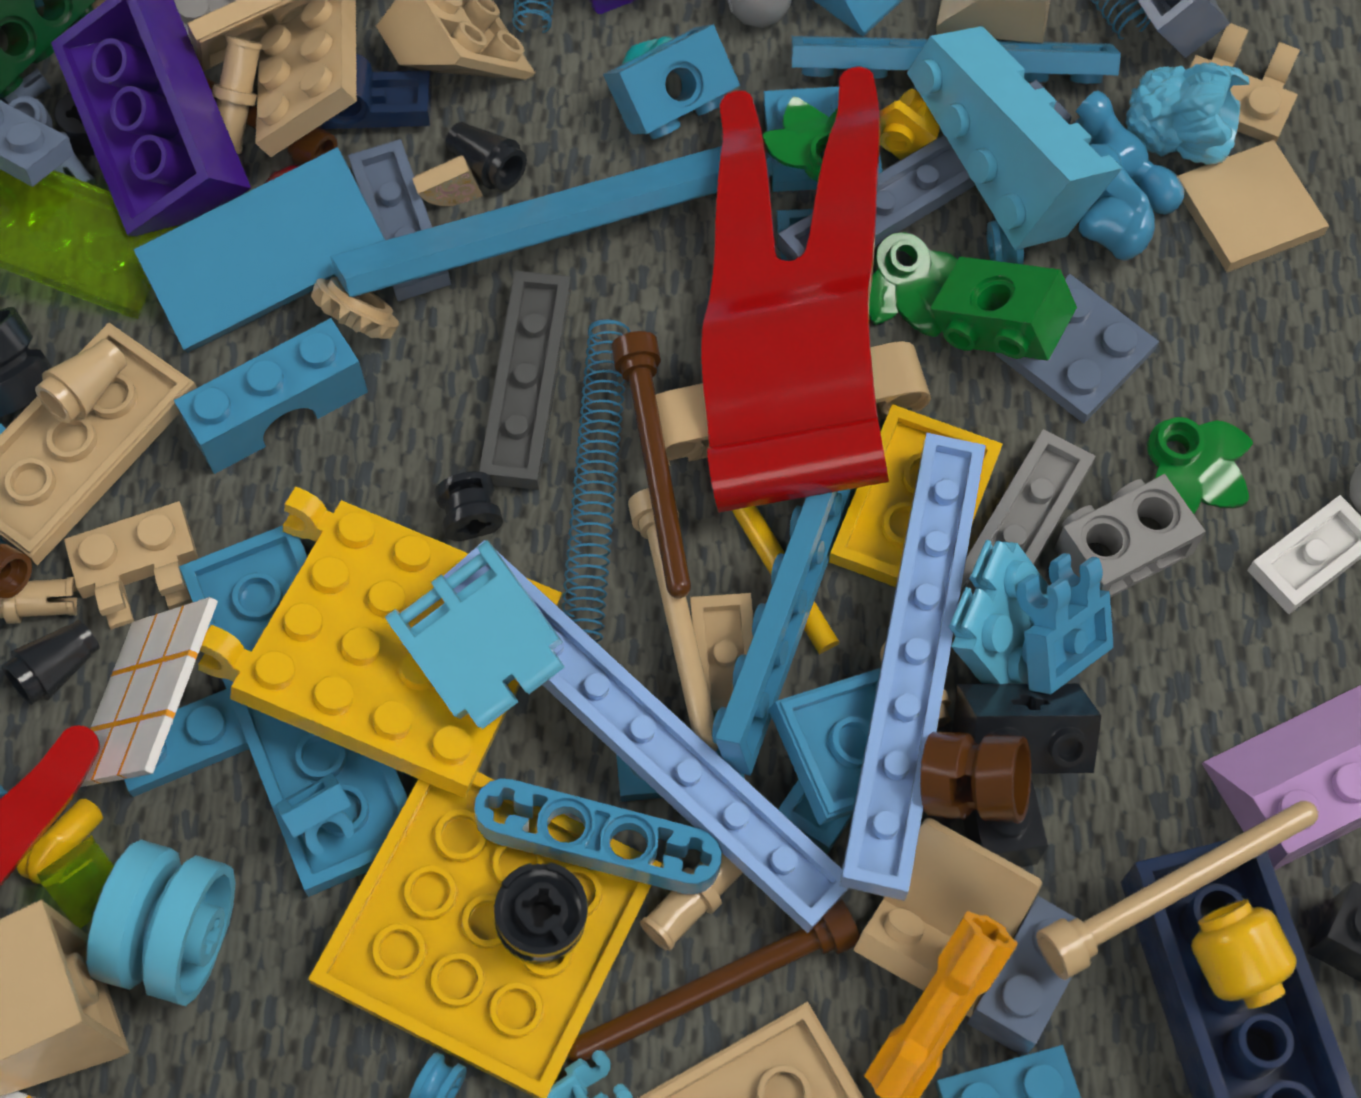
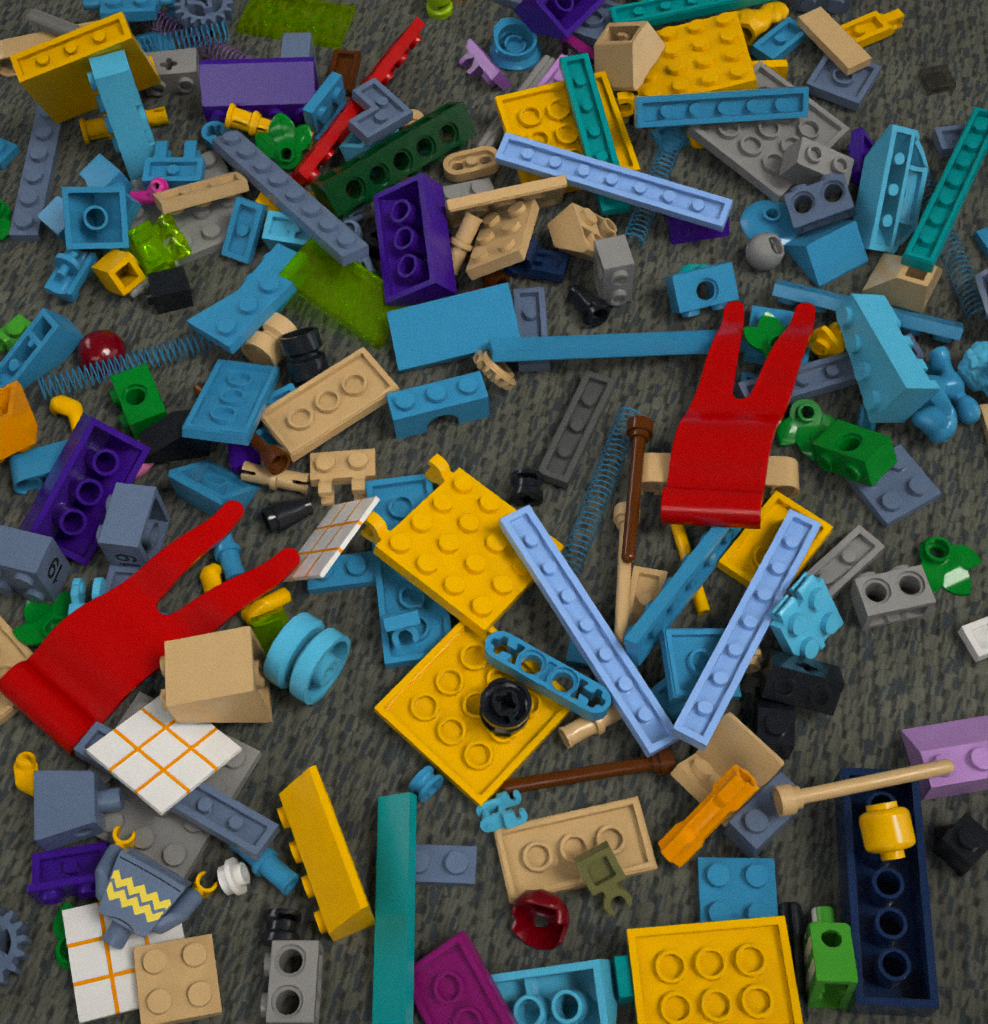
camera: 20 degrees right, 5 degrees down
(79, 382) = (340, 372): tan cone -> none
(448, 183) = (563, 316): tan tile -> none
(480, 639) = (512, 554): medium azure plate -> none
(514, 82) = (613, 269): none -> light grey brick
(973, 776) = (756, 694): reddish brown wheel -> none
(1068, 627) = (839, 638): dark azure plate -> none

